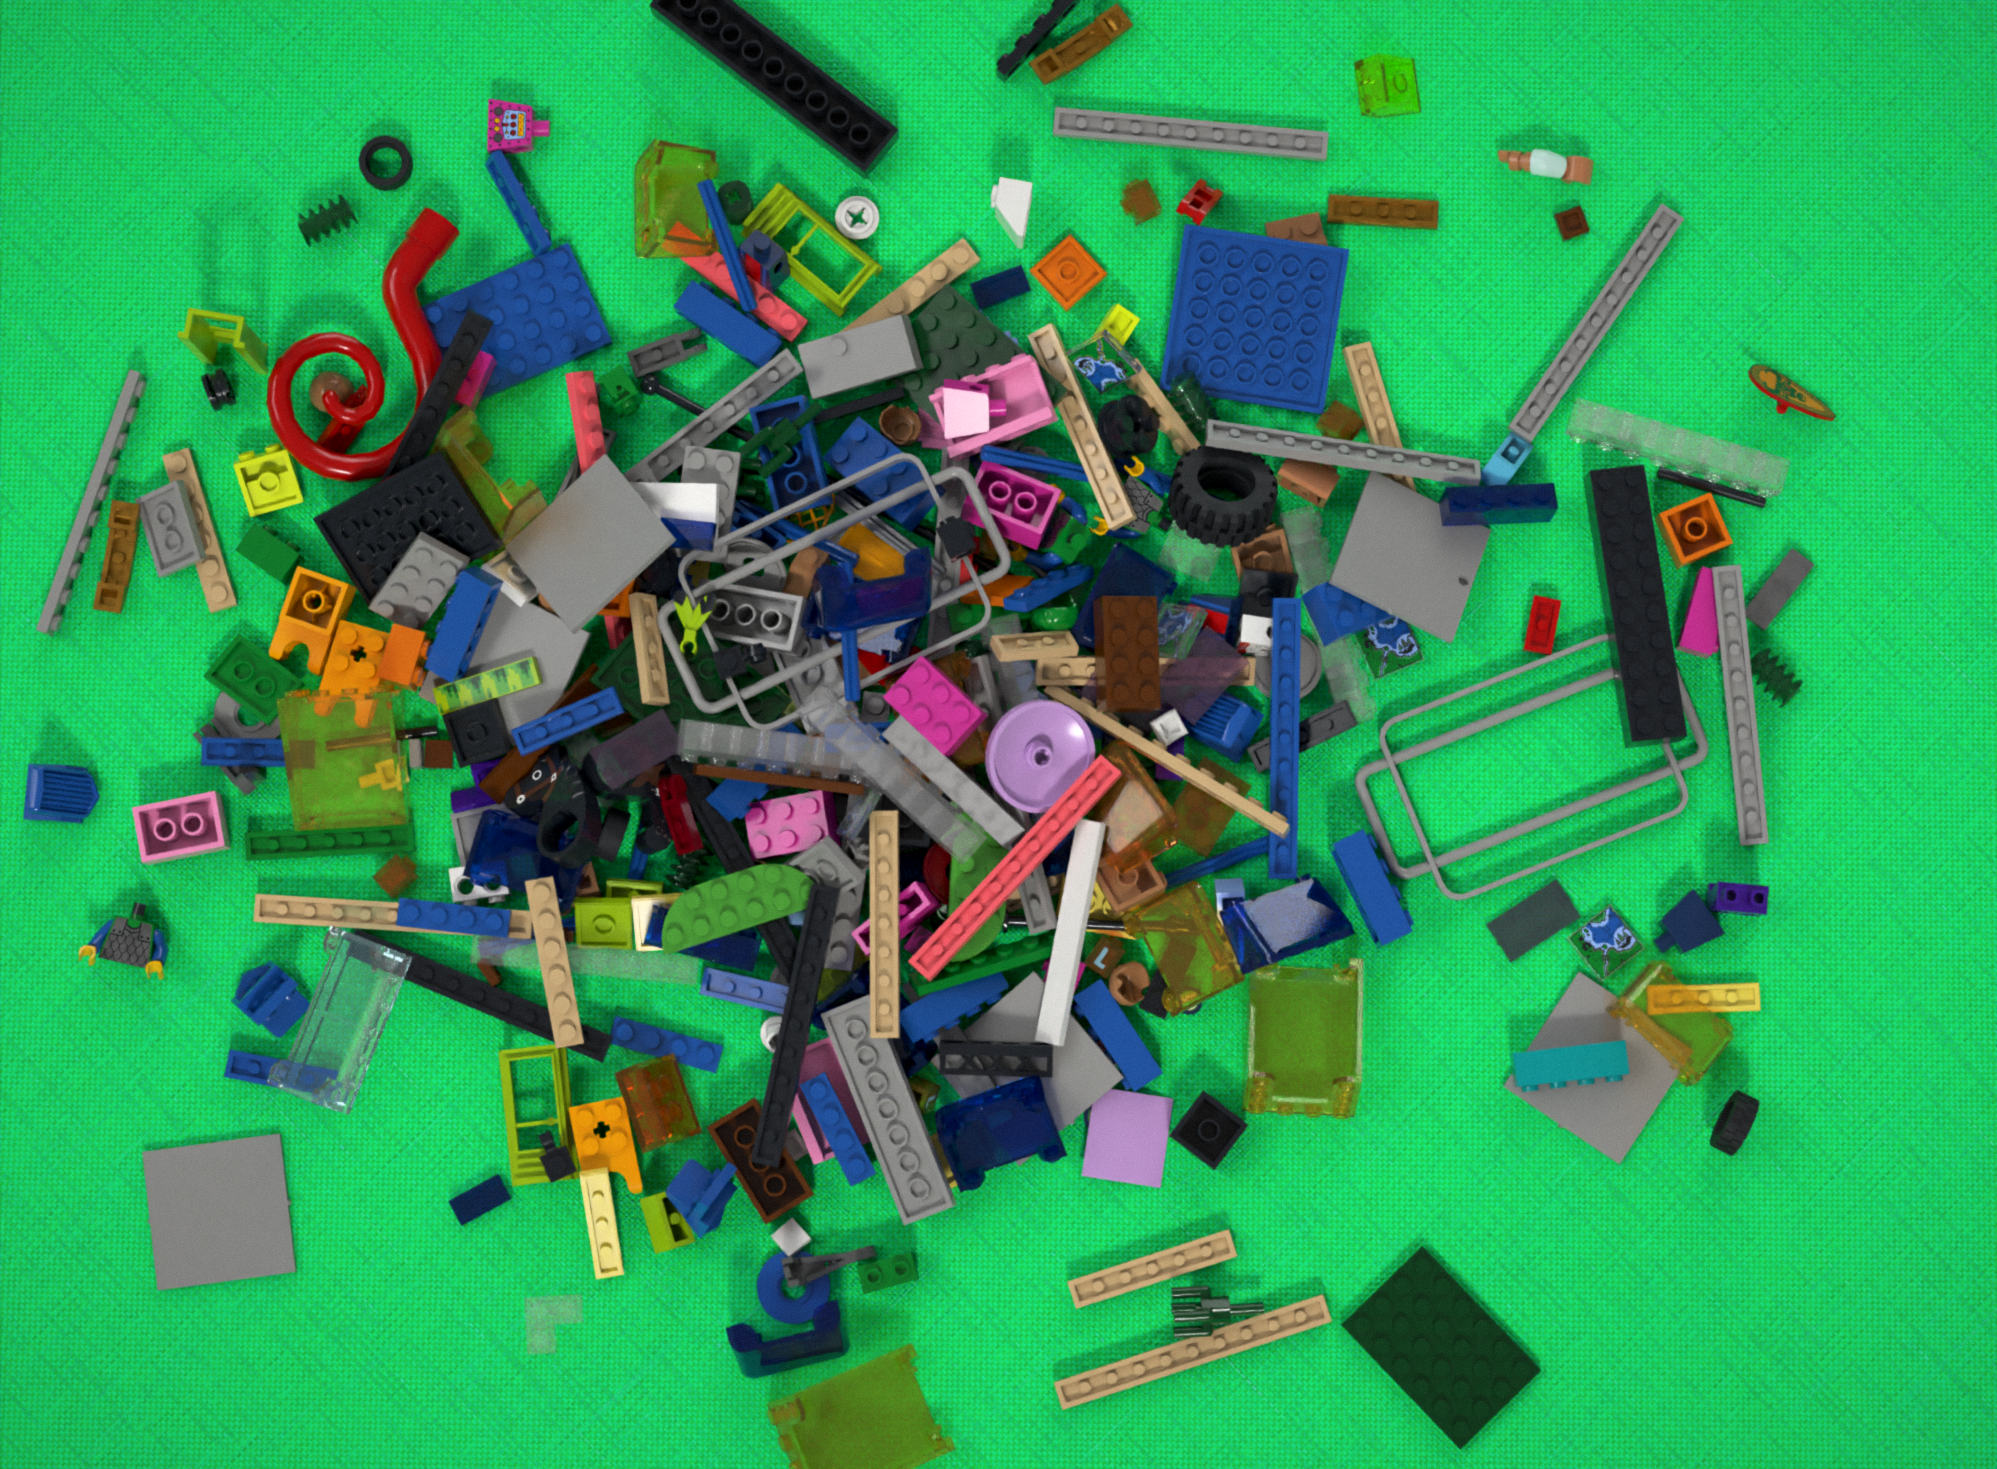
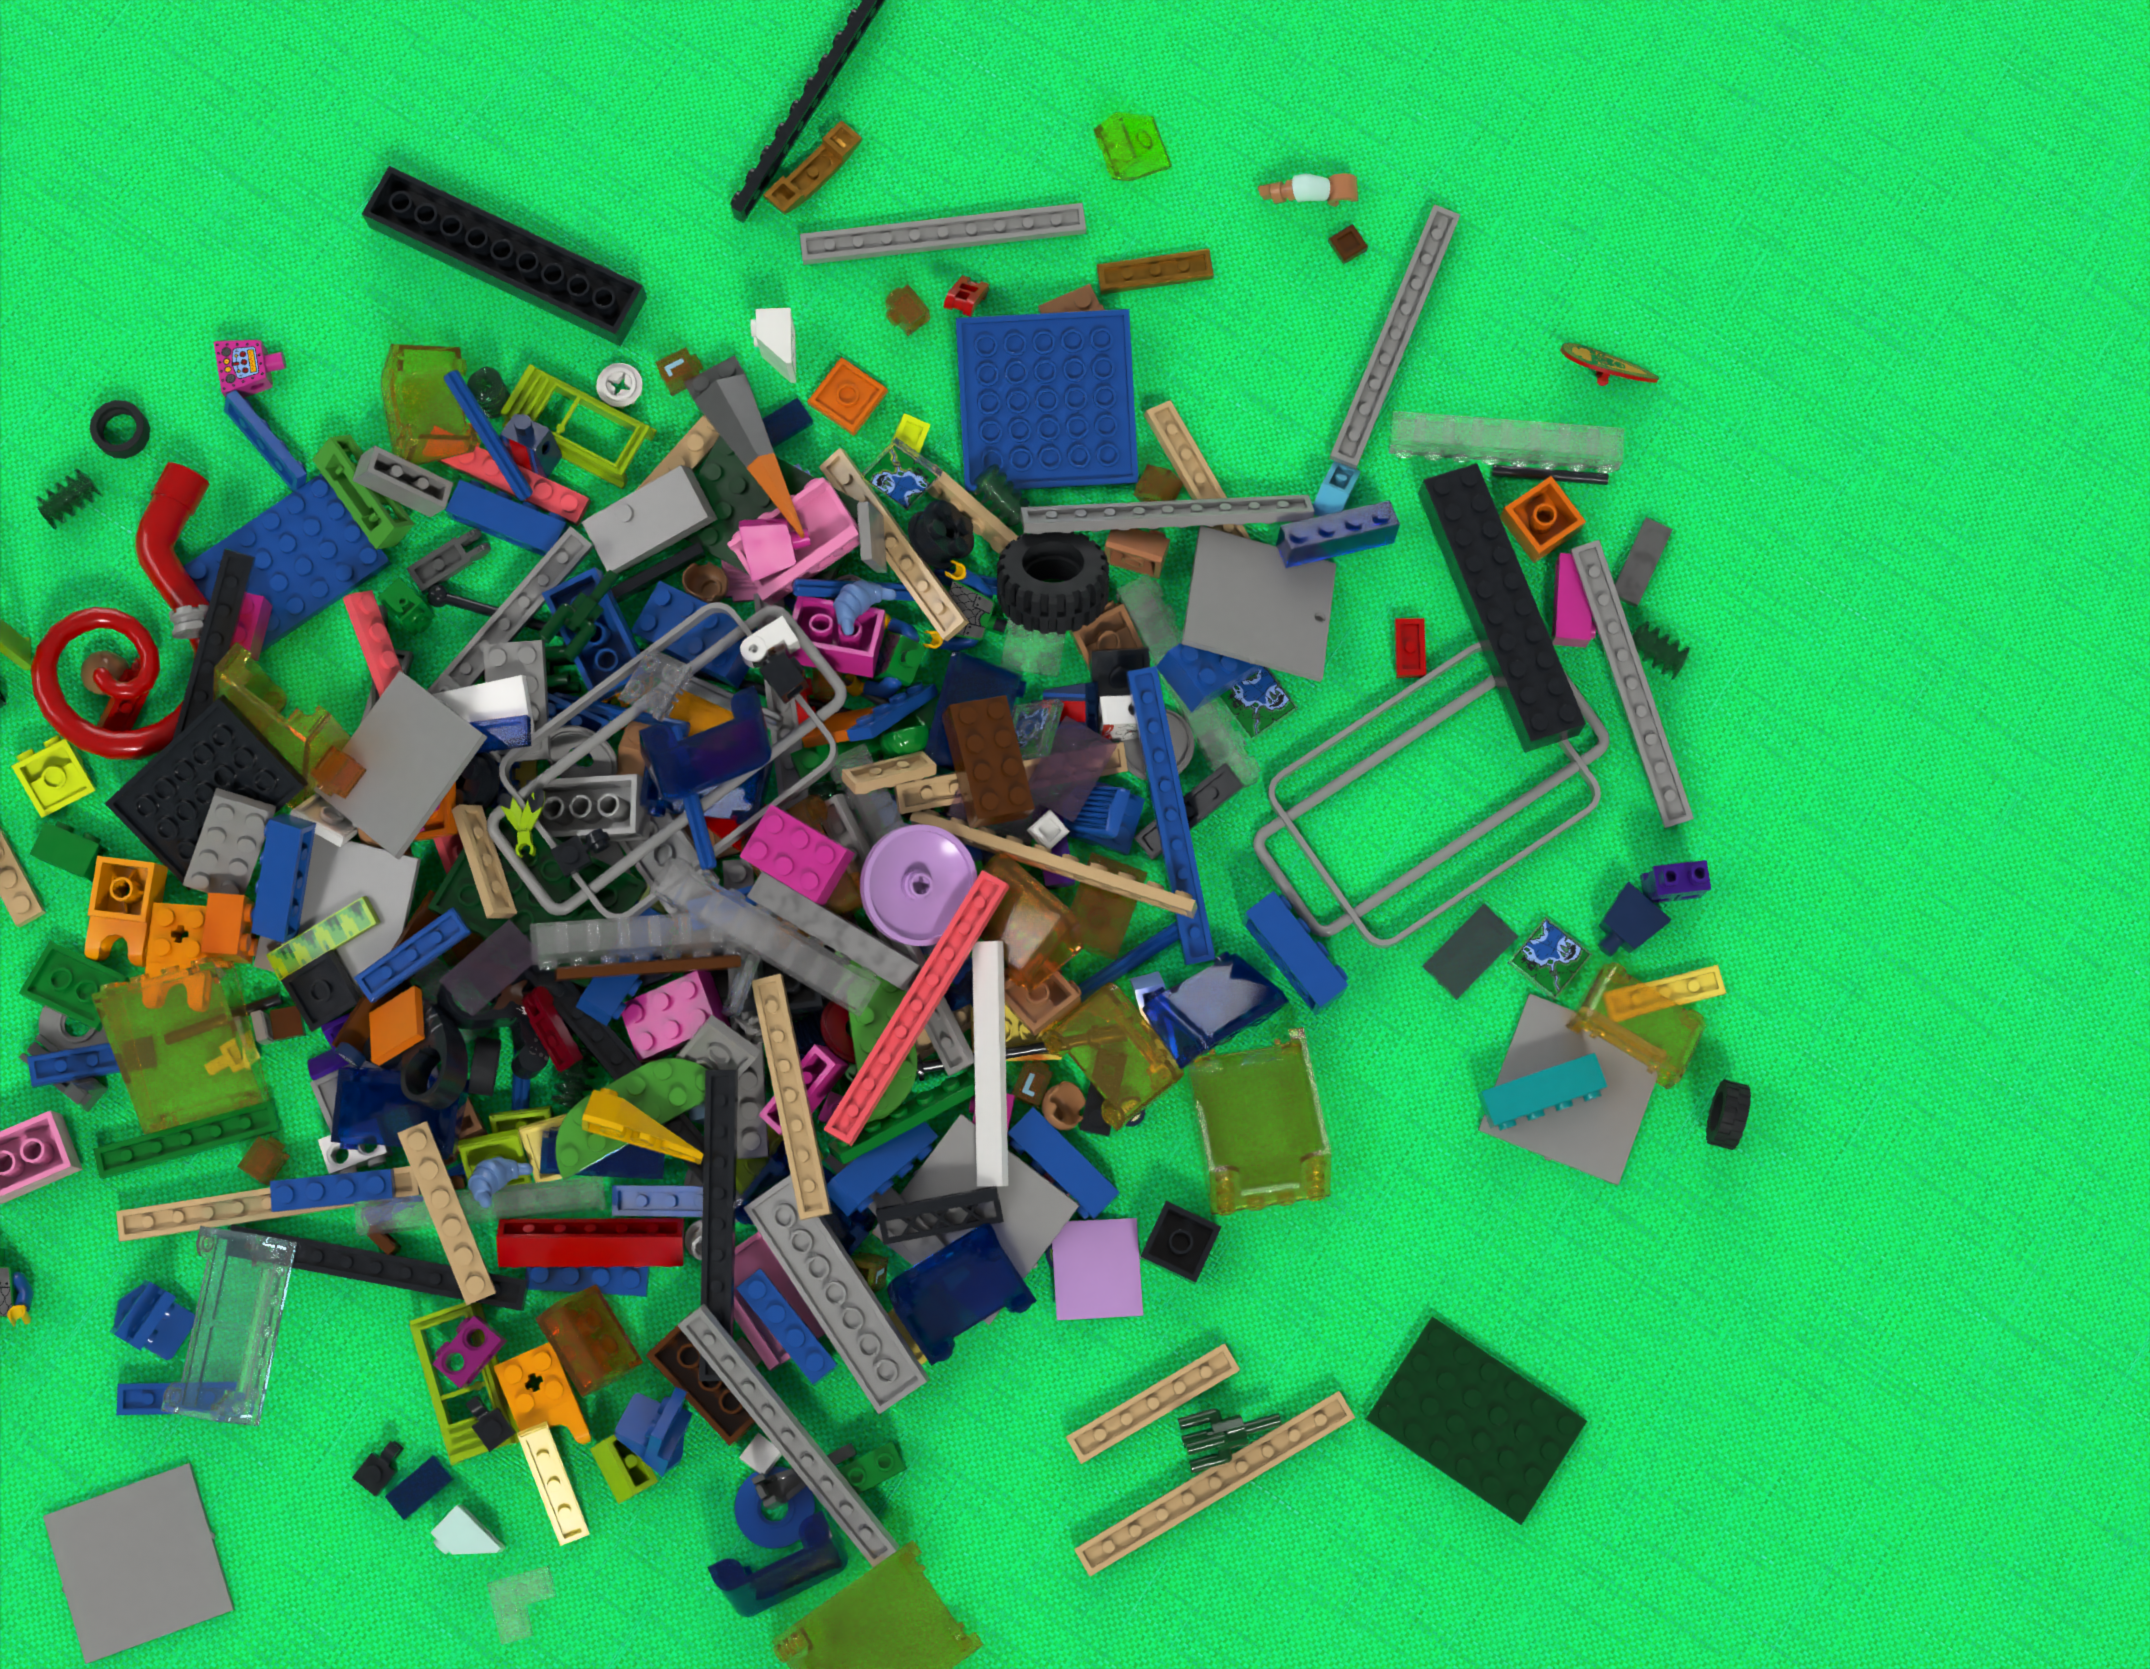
camera: 15 degrees left, 5 degrees down
(421, 365) = (188, 621): none -> light grey wheel
(445, 1177) = (377, 1470): none -> black plate
(494, 799) = (350, 1054): none -> dark blue tile
(512, 1250) = (464, 1534): none -> light aqua slope
(531, 538) = (337, 772): none -> clear orange brick
(541, 783) = (396, 1025): none -> orange tile
(554, 1096) = (474, 1357): none -> magenta brick
(599, 271) = (361, 502): none -> bright green brick
(600, 936) = (493, 1175): none -> medium blue piece
(639, 272) = (402, 481): none -> light grey brick
(676, 1015) = (591, 1242): none -> red brick
(729, 915) = (622, 1121): none -> yellow wedge
(820, 1227) = (788, 1435): none -> light grey plate
(838, 519) = (656, 684): none -> clear hinge
(916, 216) = (677, 369): none -> brick
(947, 502) = (767, 642): none -> white leg
(956, 261) = (731, 408): none -> dark grey plate
(1036, 476) = (856, 599): none -> medium blue piece
(1063, 419) = (871, 537): none -> light grey tile

